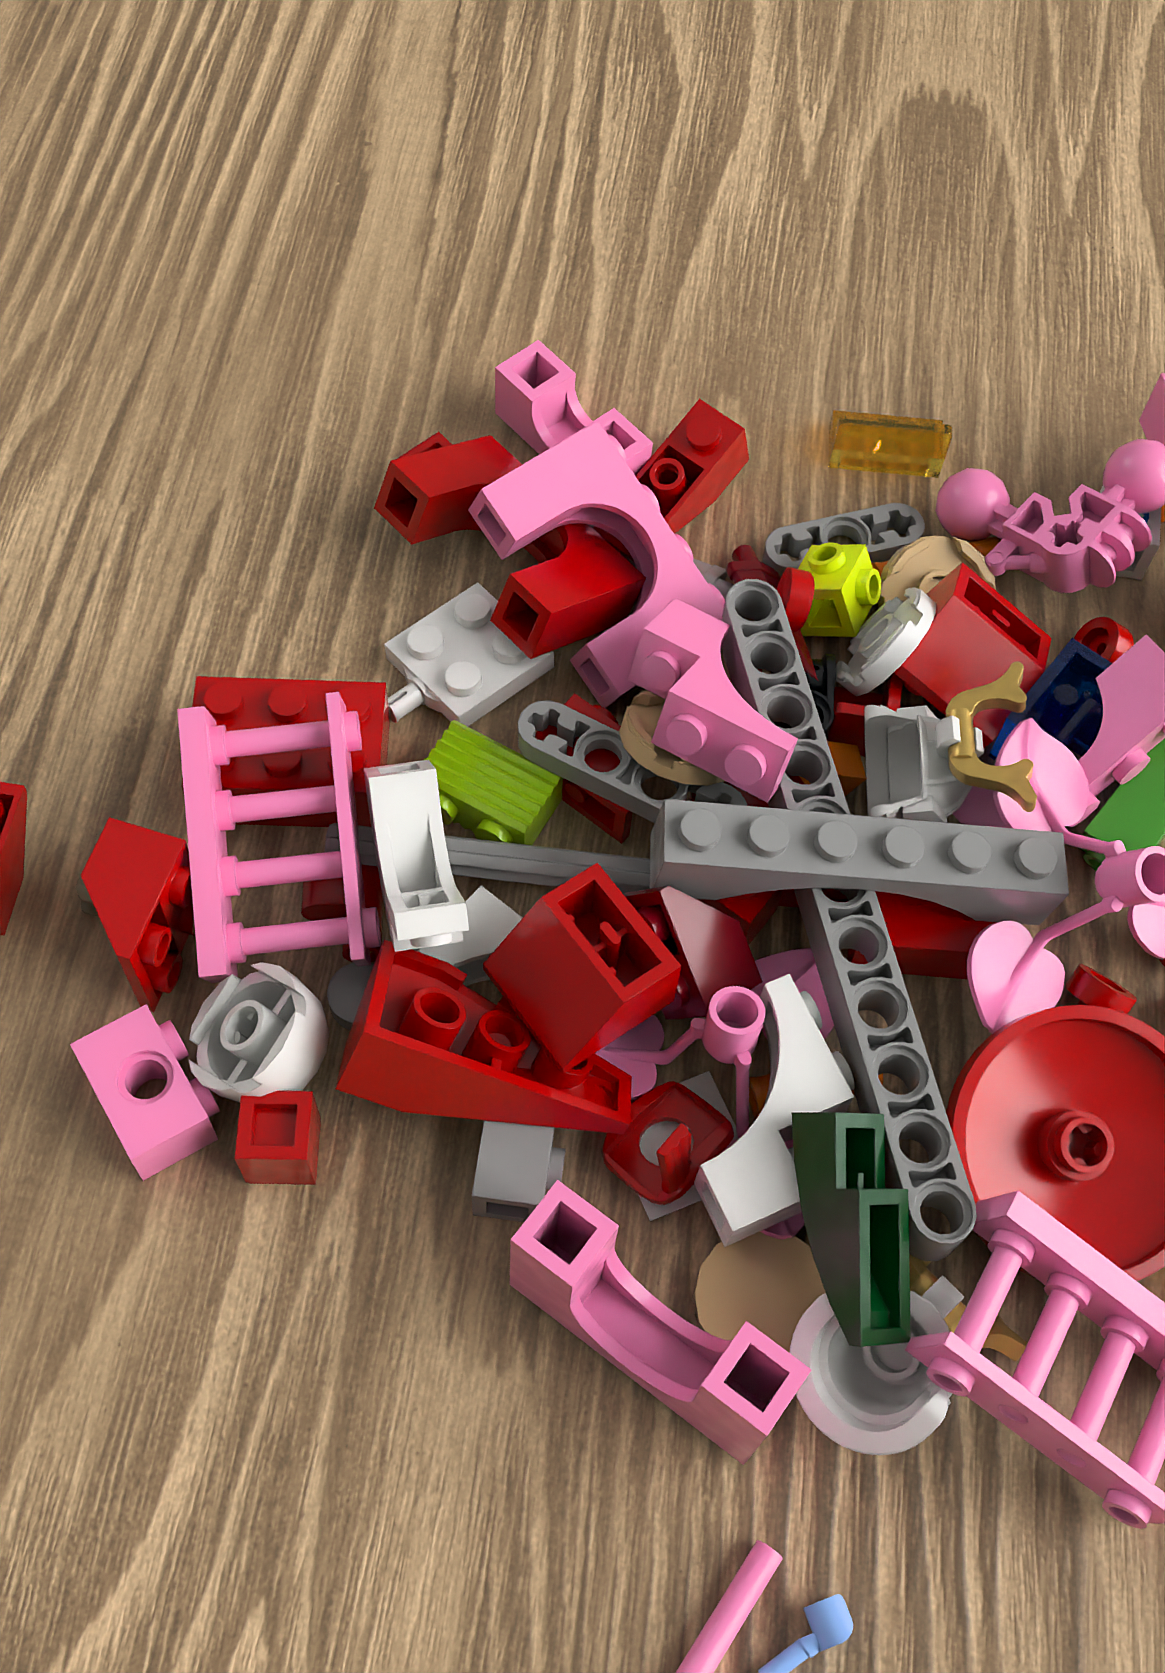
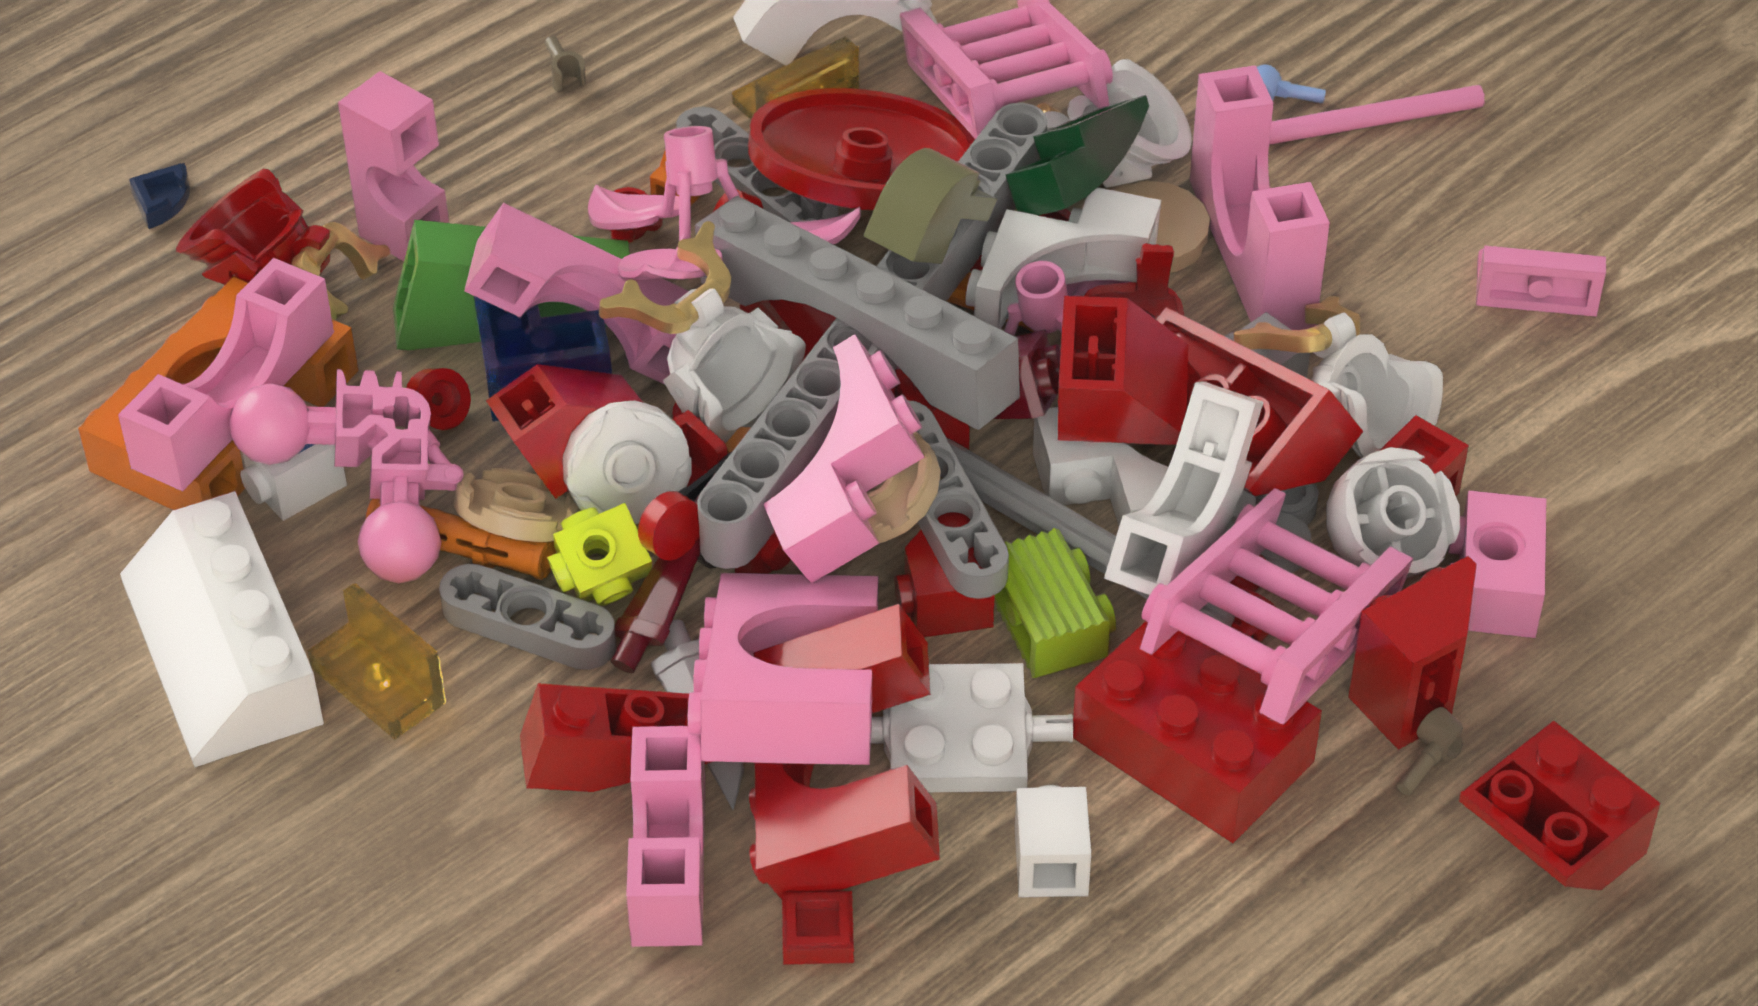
camera: 135 degrees left, 15 degrees down
(323, 601) = (1052, 841): none -> white brick
(338, 1541) = (1540, 280): none -> bright pink panel
(390, 1181) = (1370, 384): none -> white helmet
(886, 967) = (924, 206): none -> olive brick
(1003, 404) = (220, 632): none -> white slope

